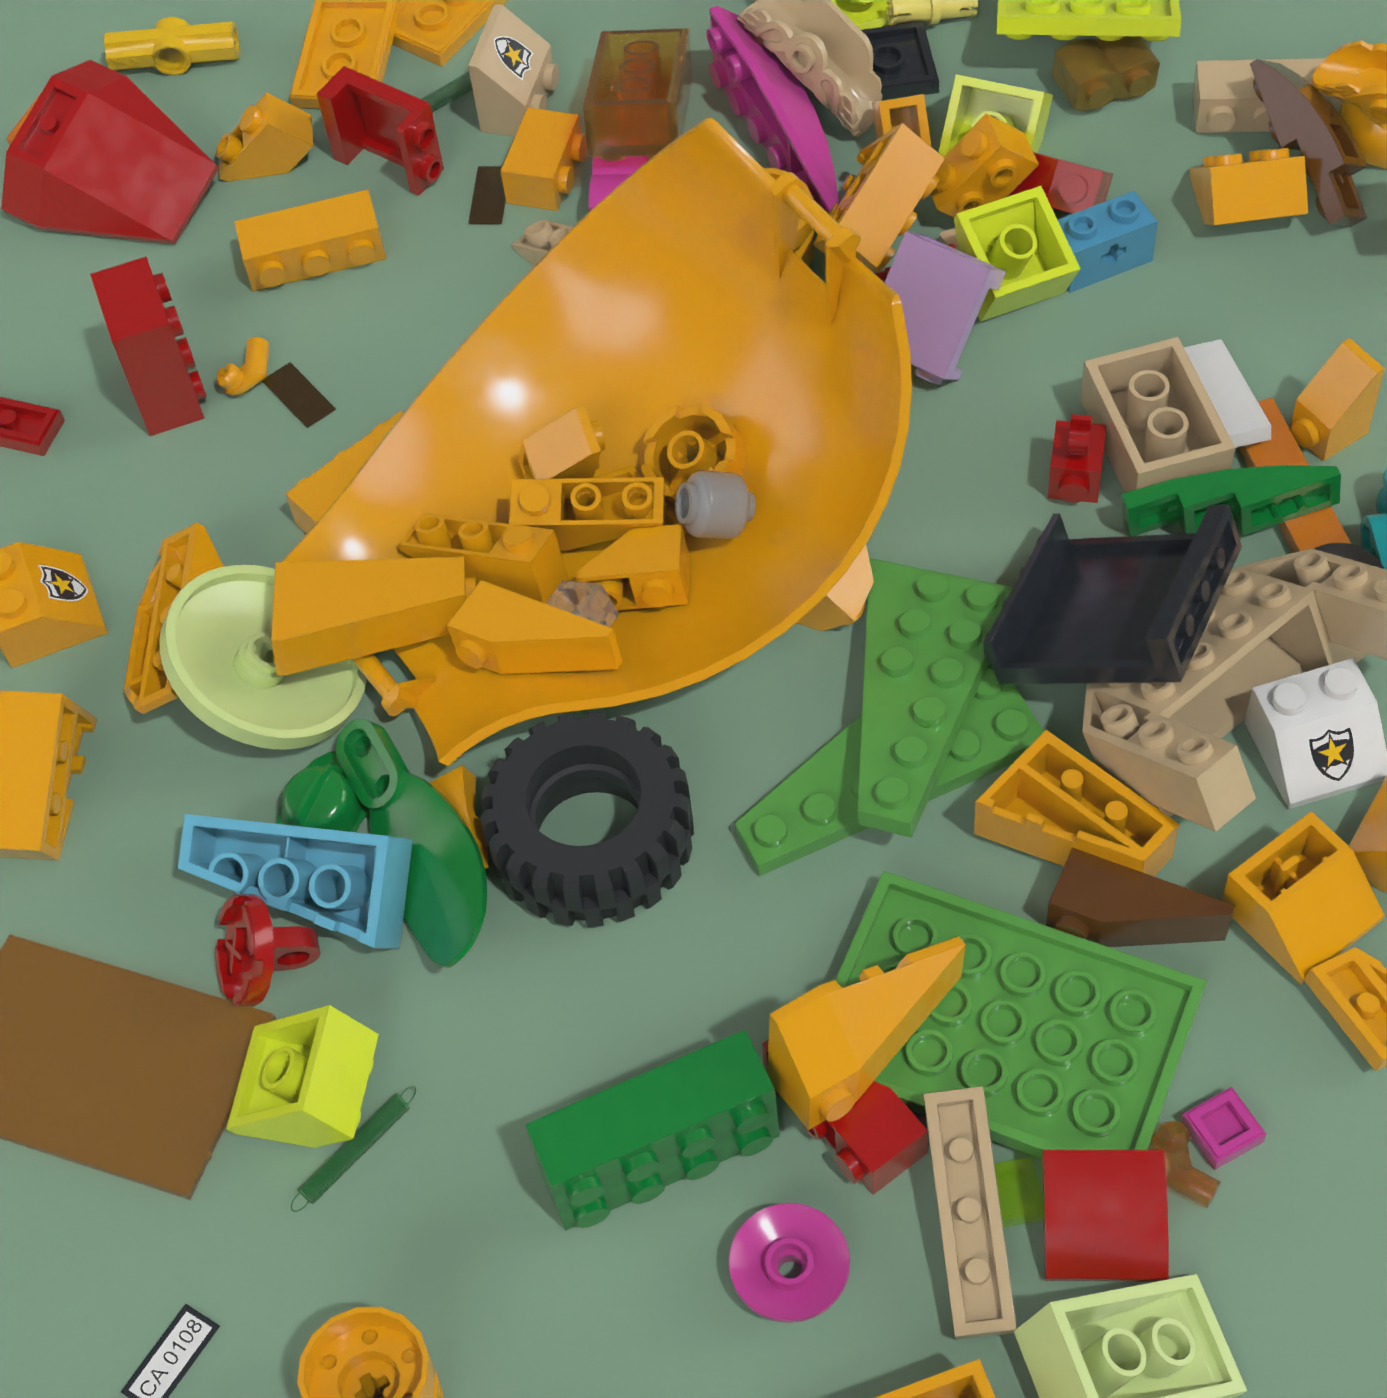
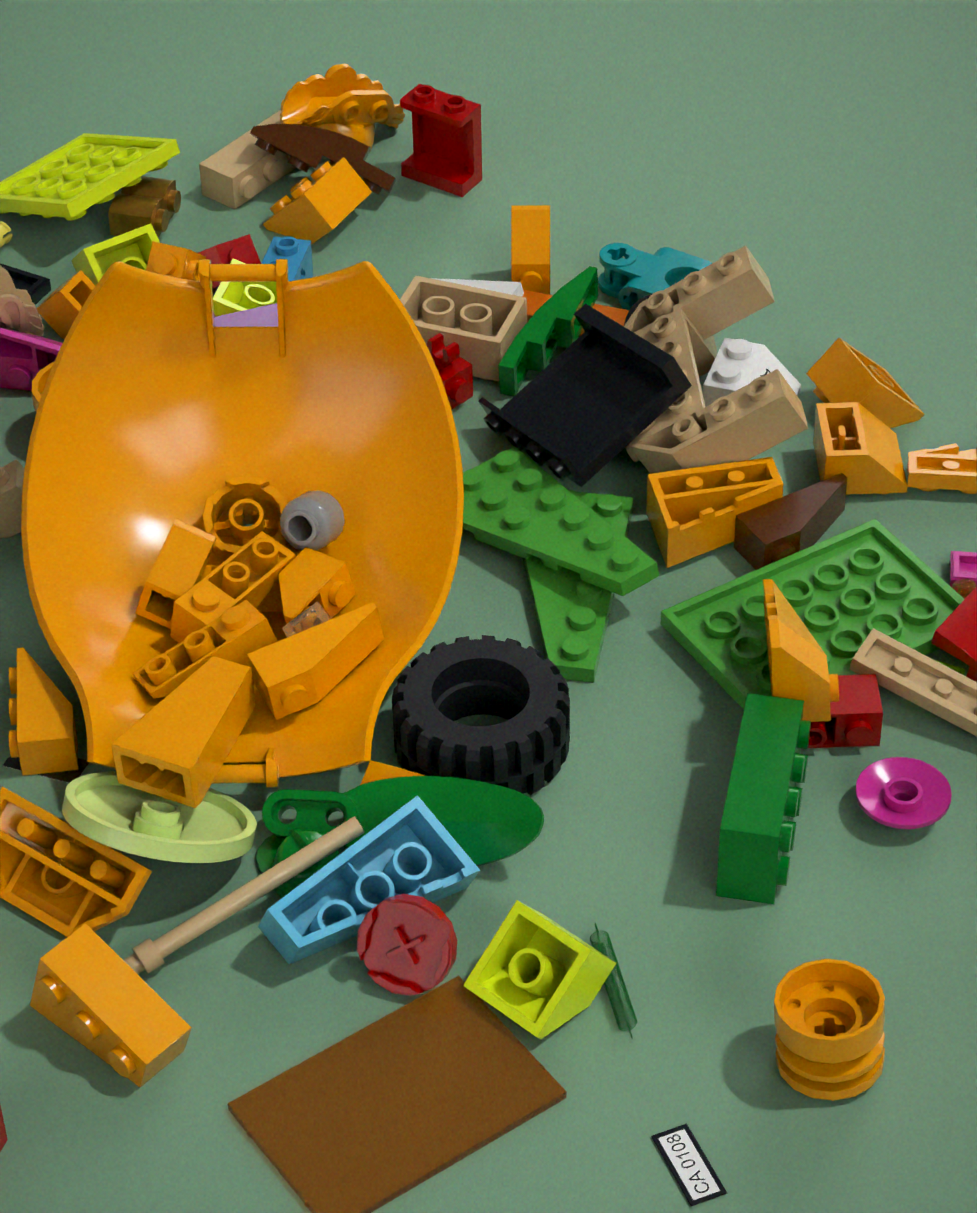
camera: 60 degrees left, 15 degrees down
(134, 762) = (150, 954): none -> tan bar

